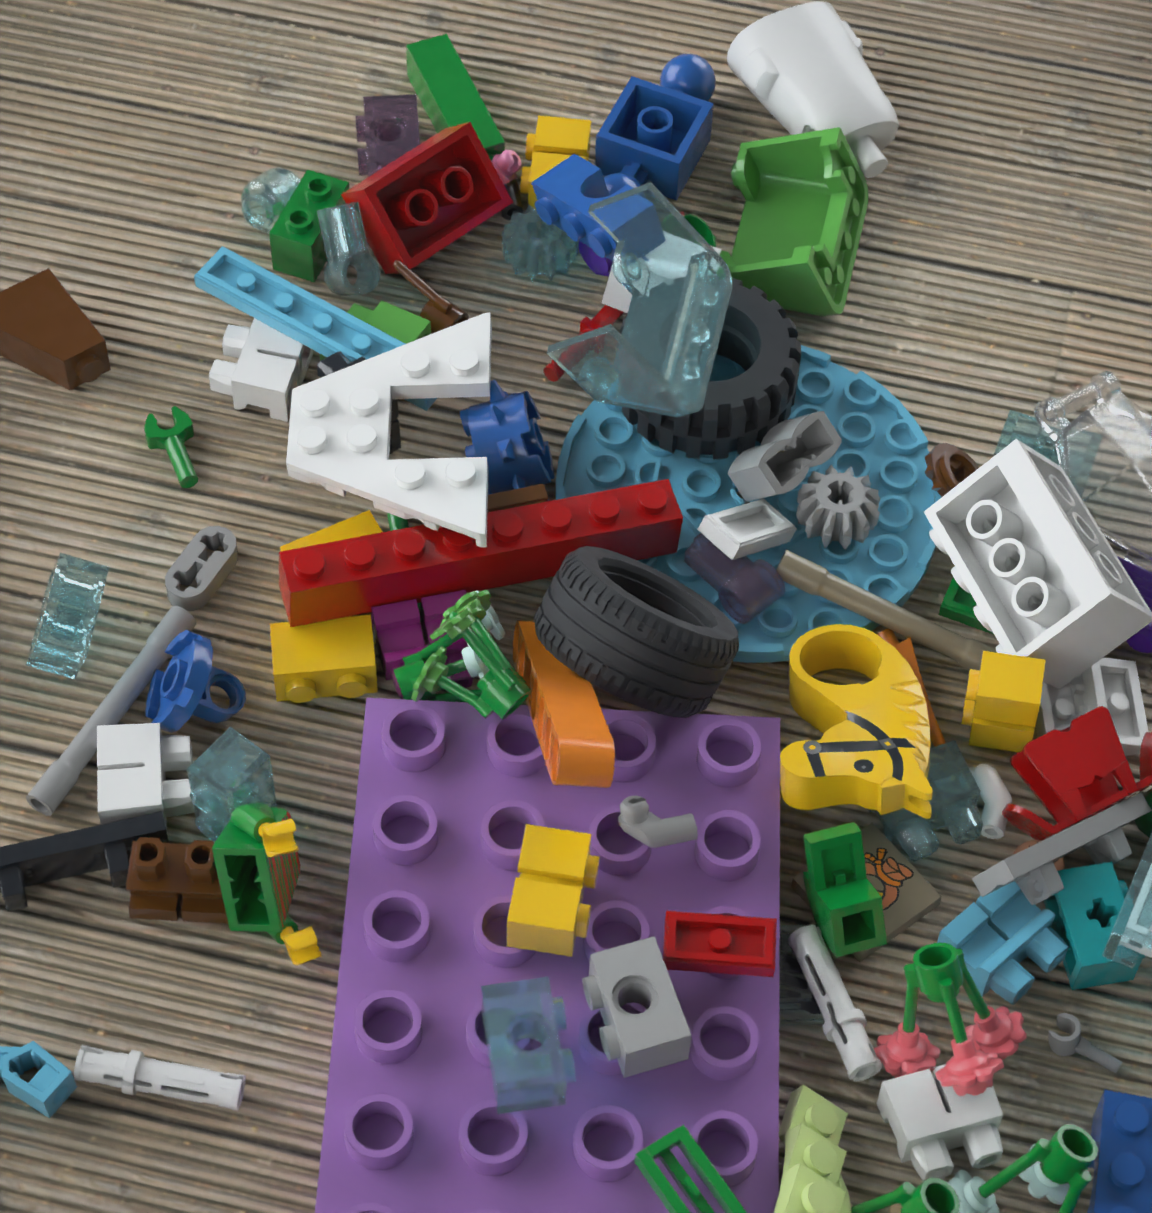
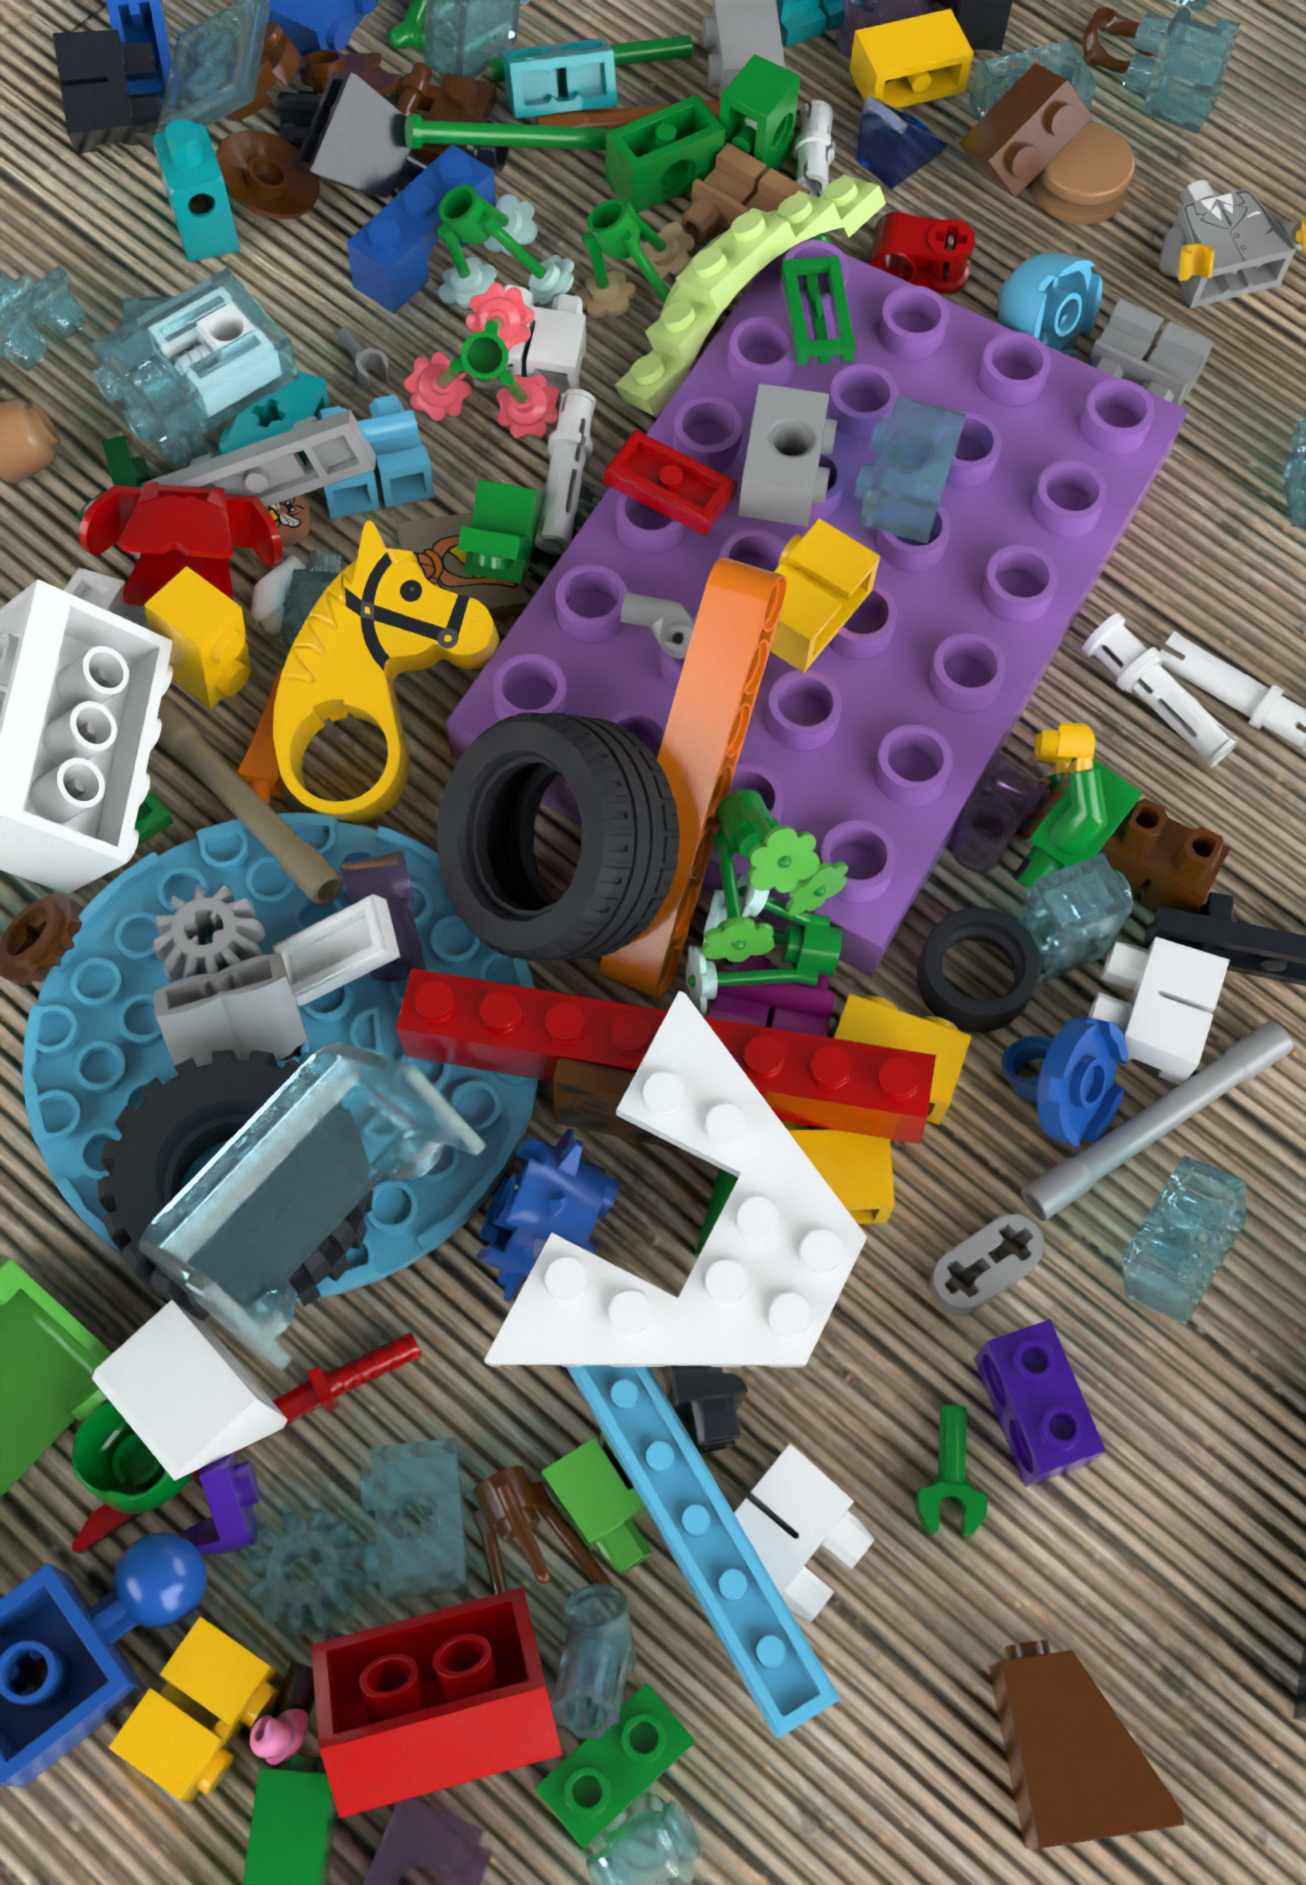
camera: 155 degrees left, 10 degrees up
(134, 490) = (1038, 1403): none -> dark purple brick
(254, 1051) = (1140, 671): none -> white pin
(308, 718) = (994, 929): none -> black tyre
(323, 878) = (1001, 807): none -> clear purple piece
(487, 280) = (438, 1557): none -> clear light blue brick
(565, 200) = (245, 1554): blue arch -> none

